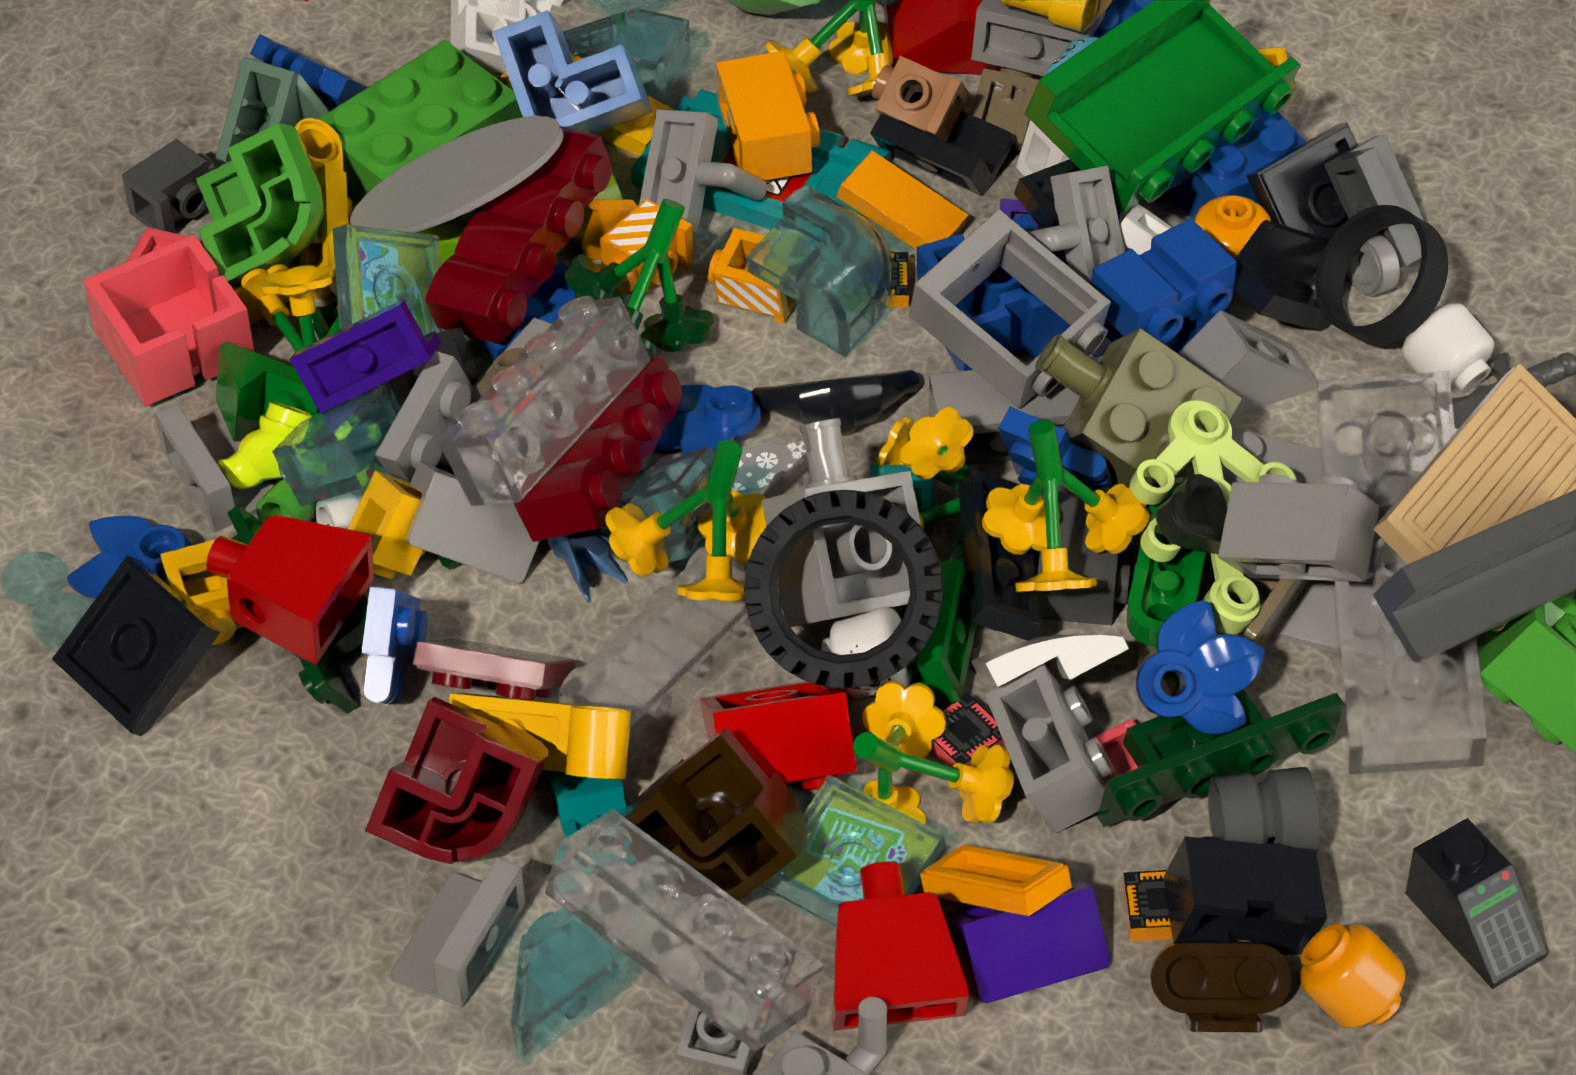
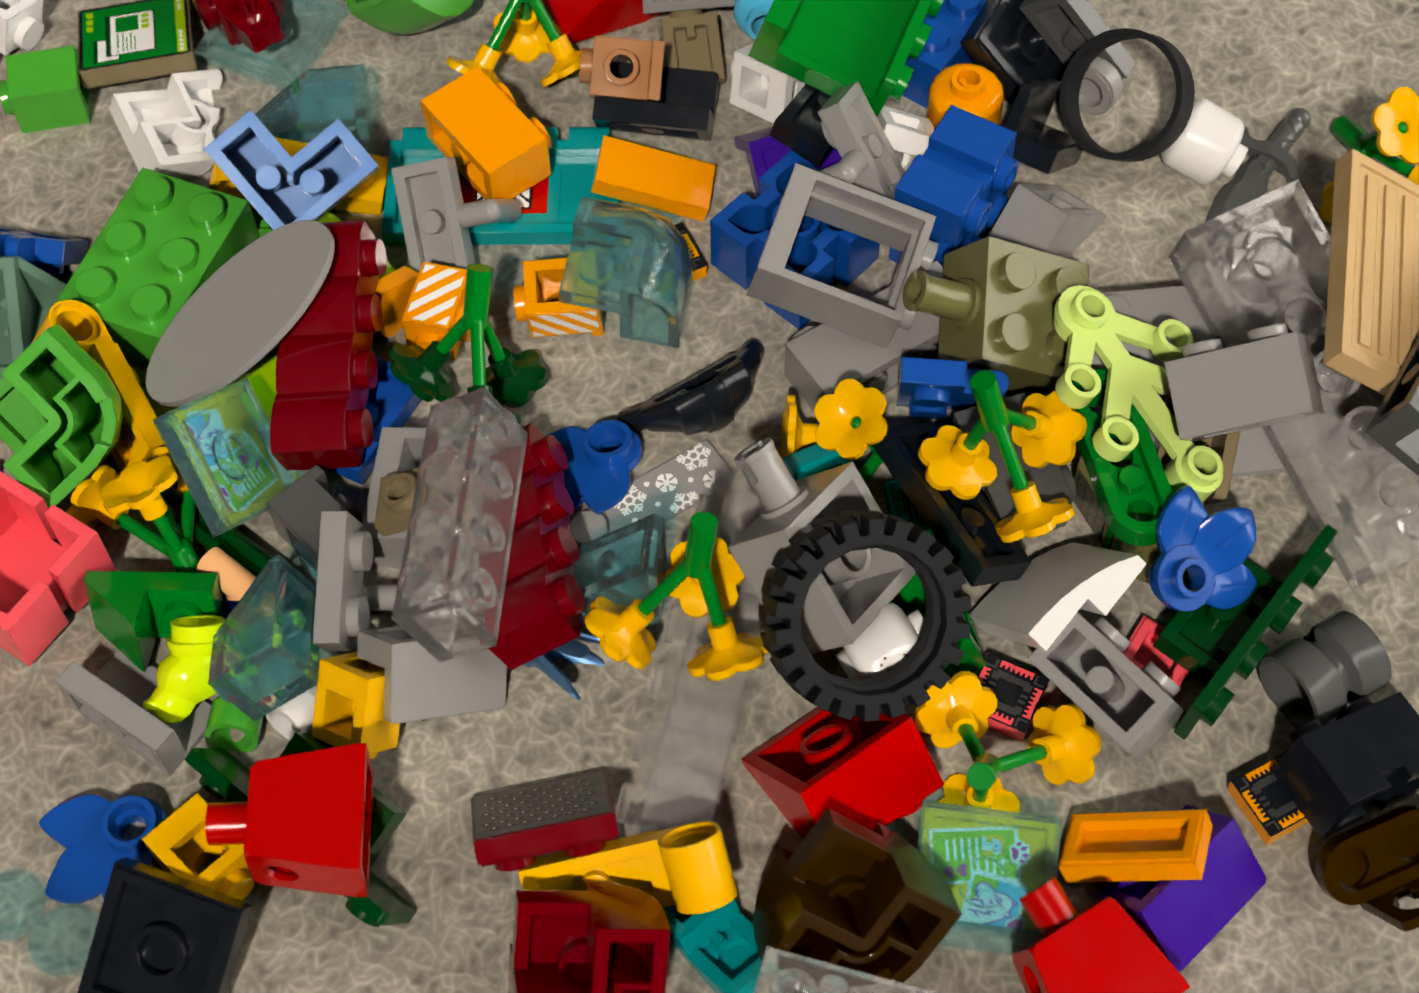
camera: 25 degrees left, 10 degrees up
(363, 356) = (255, 546): dark purple panel -> none
(389, 640) = (430, 832): hinge -> none
(1194, 515) = (1137, 404): pearl dark grey tile -> none

